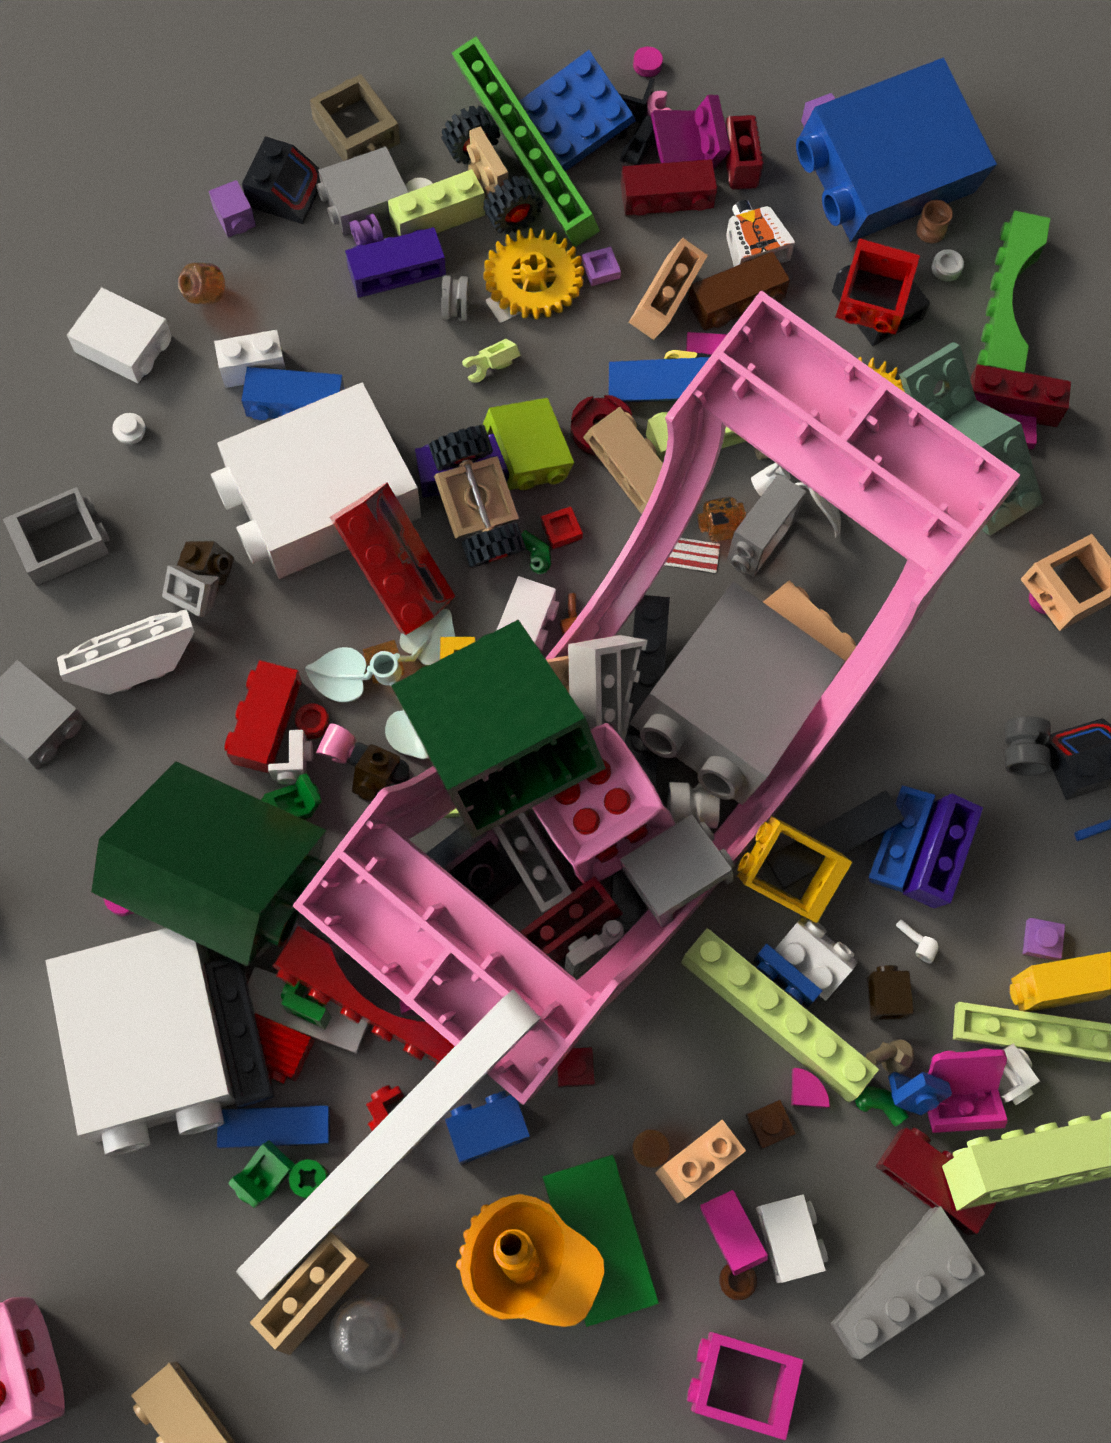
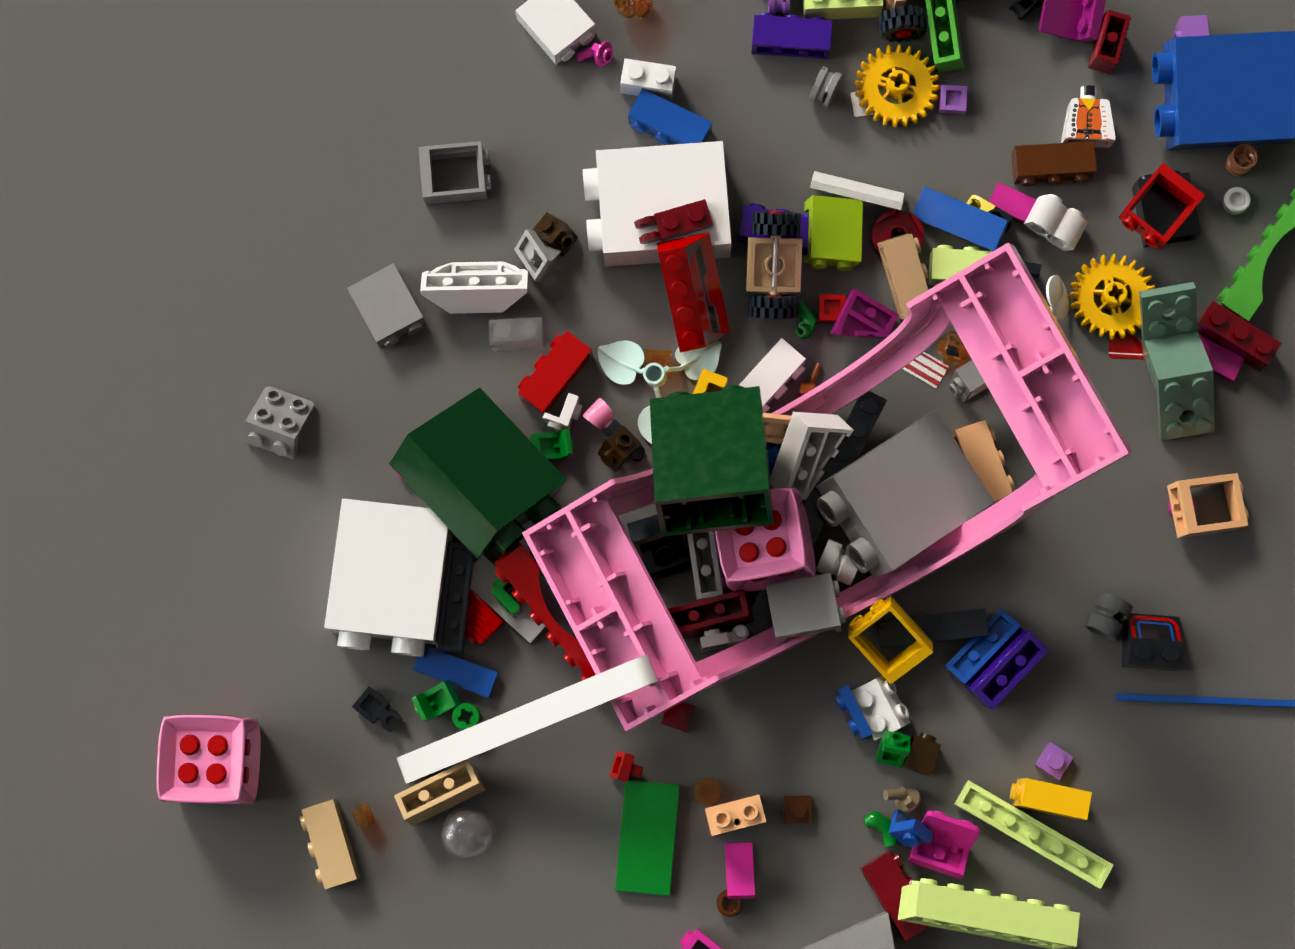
camera: 30 degrees right, 10 degrees up
(129, 428) = (536, 102): white plate -> none
(183, 1215) = (374, 706): none -> black plate
(184, 348) = (601, 52): none -> dark pink plate
(200, 689) = (516, 334): none -> clear brick
(219, 1368) = (363, 816): none -> clear orange plate
(312, 720) = (588, 388): red tile -> none
(342, 486) = (676, 222): none -> dark red hinge
(381, 1099) = (530, 688): red bracket -> none
(486, 1127) = (598, 732): blue brick -> none
(495, 356) = (835, 146): yellowish green plate -> none
(529, 1264) = (591, 834): light orange piece -> none
(535, 1160) = (624, 766): none -> red tile
(536, 392) = (857, 190): none -> white piece
(602, 522) = (864, 318): none -> magenta wing
(668, 187) = (1036, 50): dark red brick -> none
(668, 289) = (996, 141): light nougat brick -> none
(779, 1016) = (835, 737): yellowish green brick -> none
(791, 1238) = (777, 891): white brick -> none
(808, 1090) = (834, 797): dark pink tile -> none
(853, 1000) = (893, 748): none -> green bracket
(927, 946) = (965, 733): white hand -> none
(1020, 1075) = (989, 841): white bracket -> none

